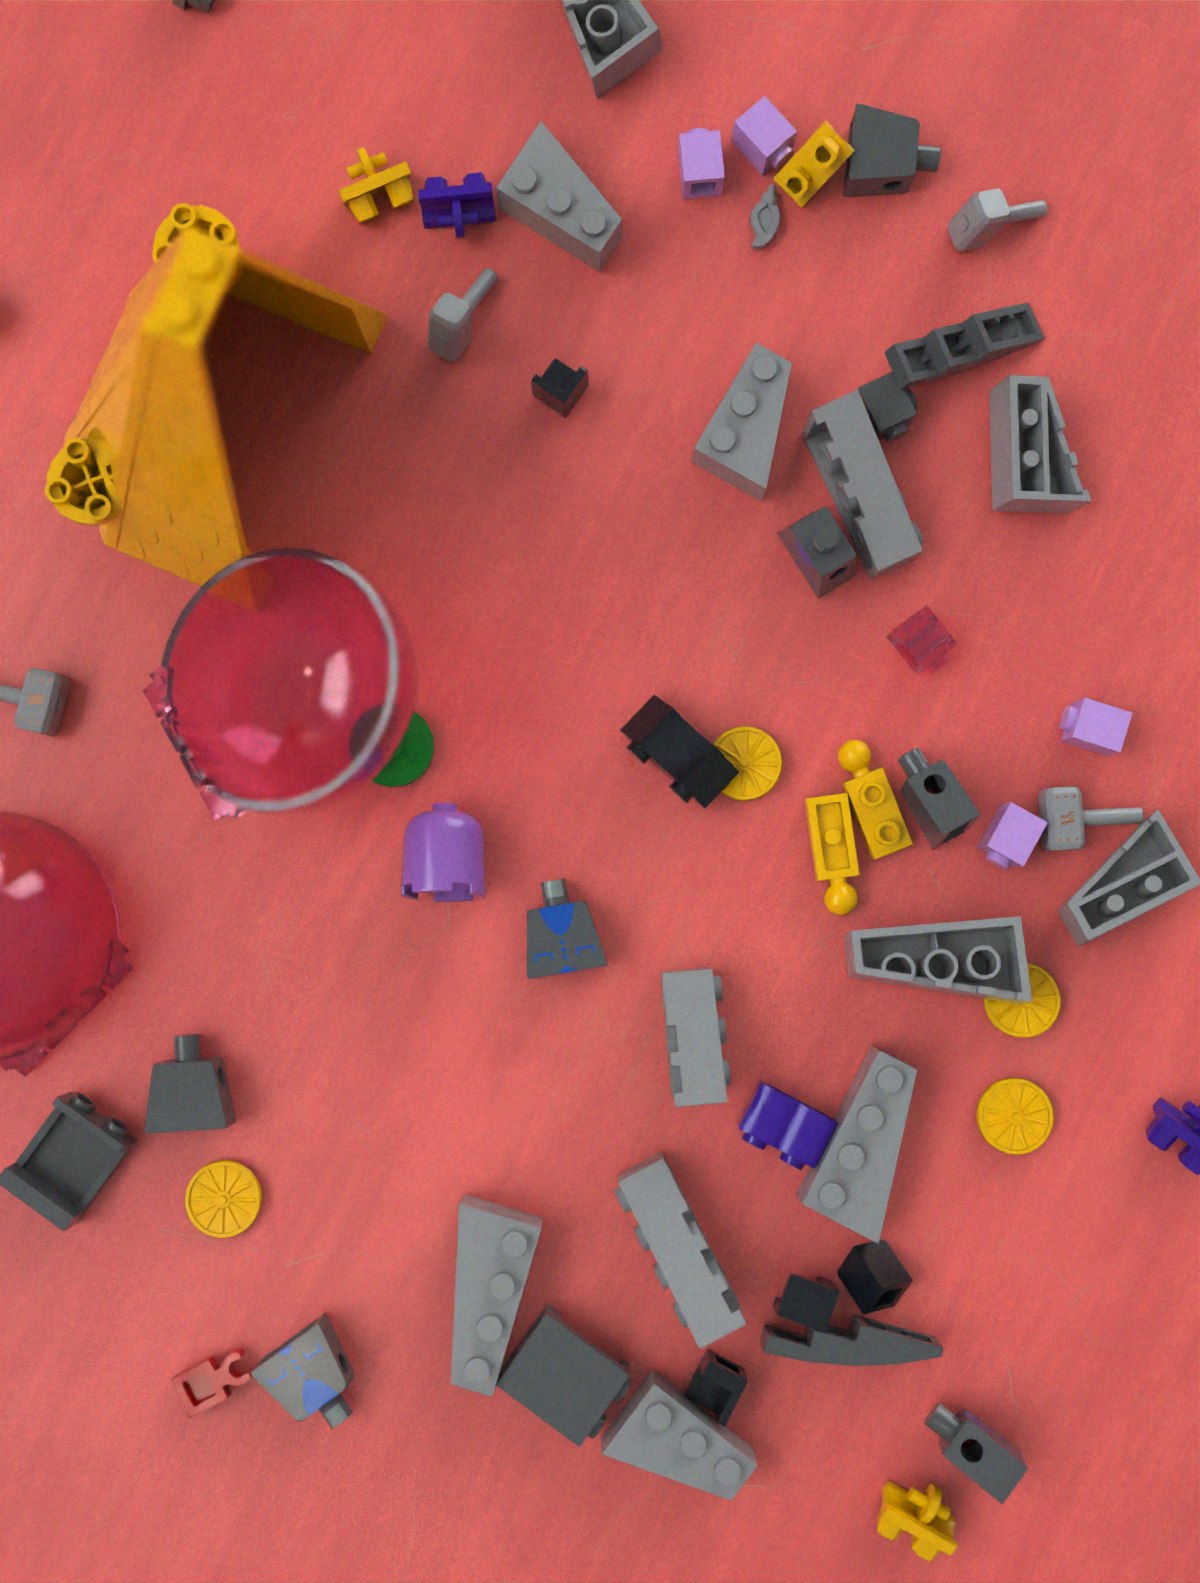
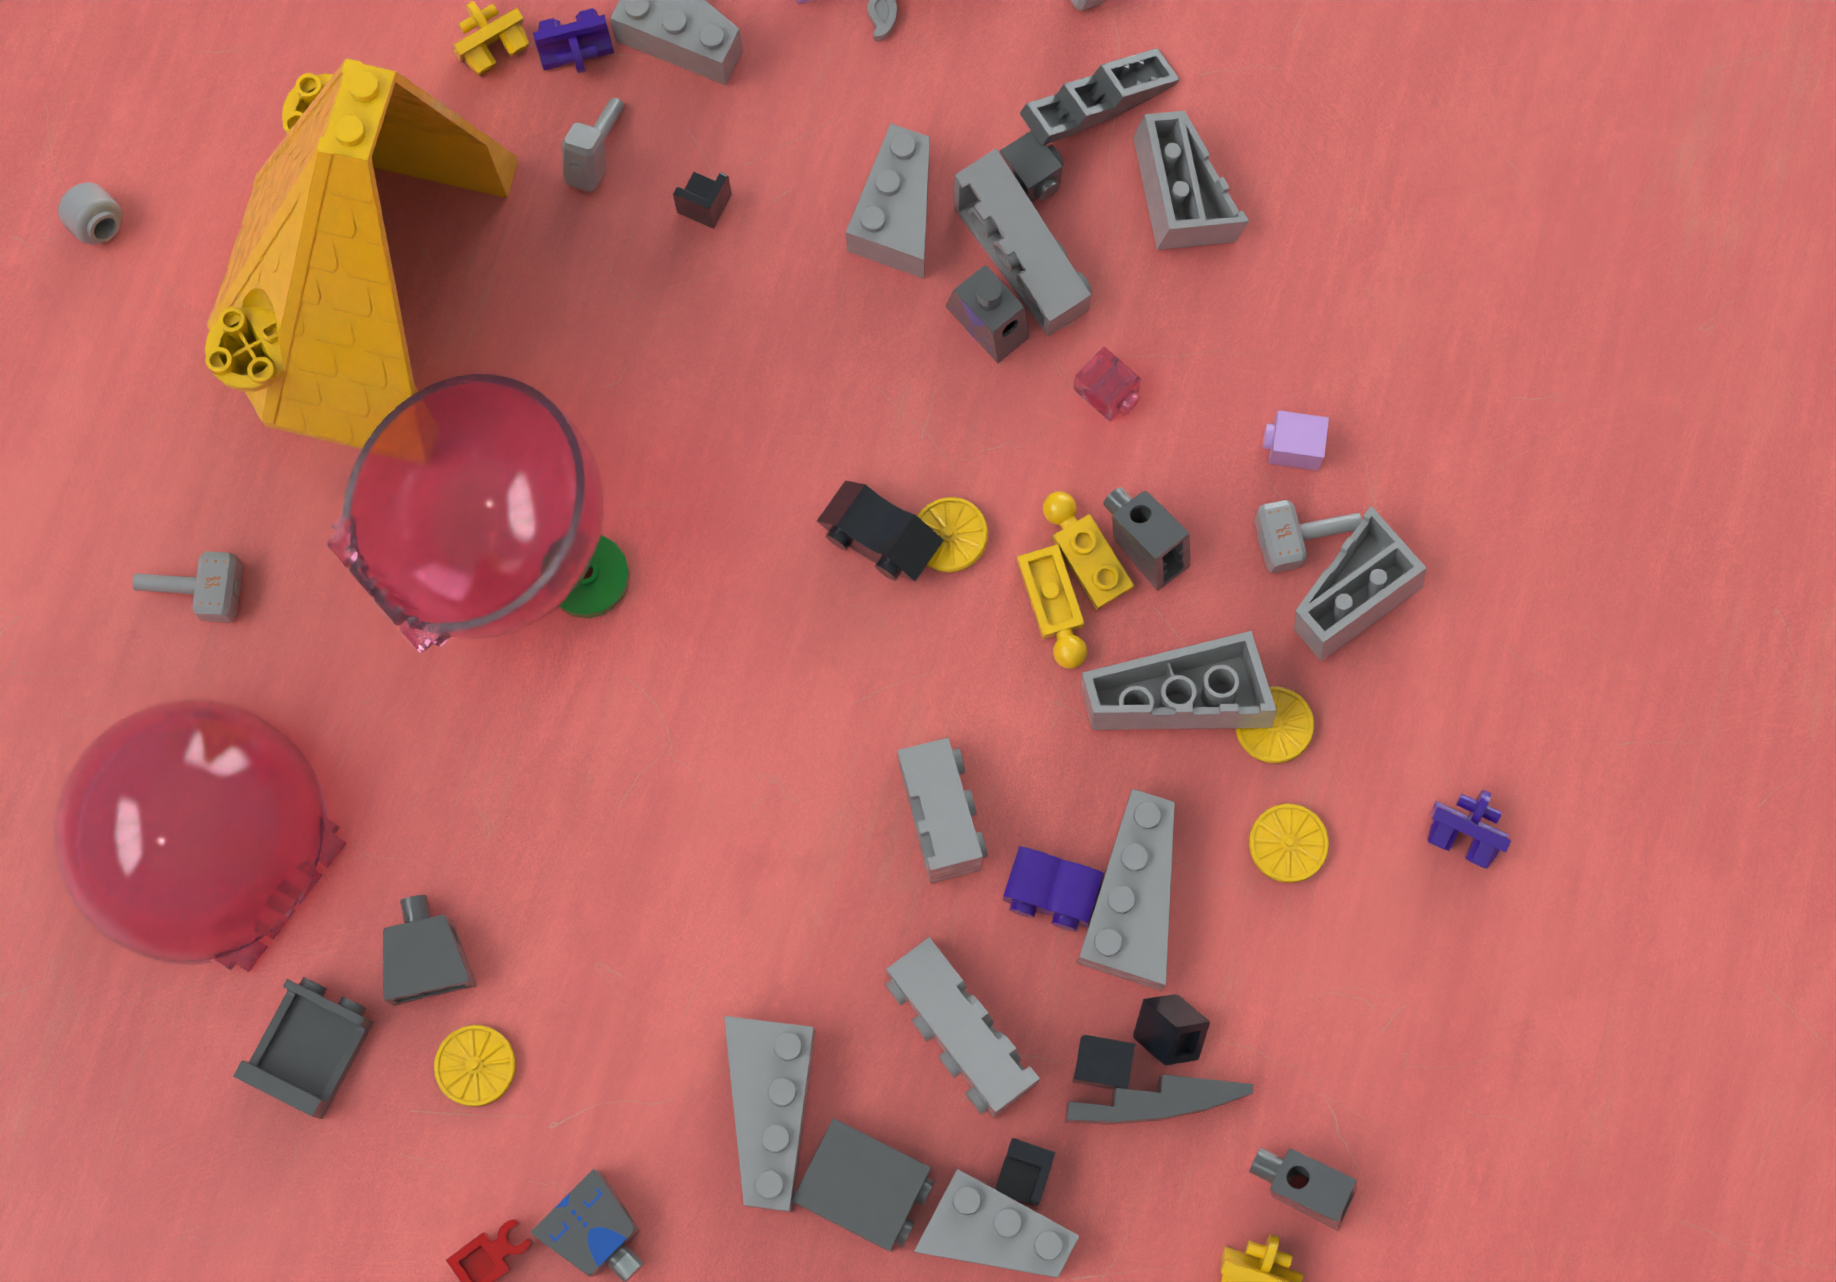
camera: 10 degrees left, 10 degrees down
(443, 855) = (655, 672): medium lavender cylinder -> none
(561, 935) = (789, 733): dark grey torso -> none
(1011, 836) = (1232, 561): lavender brick -> none

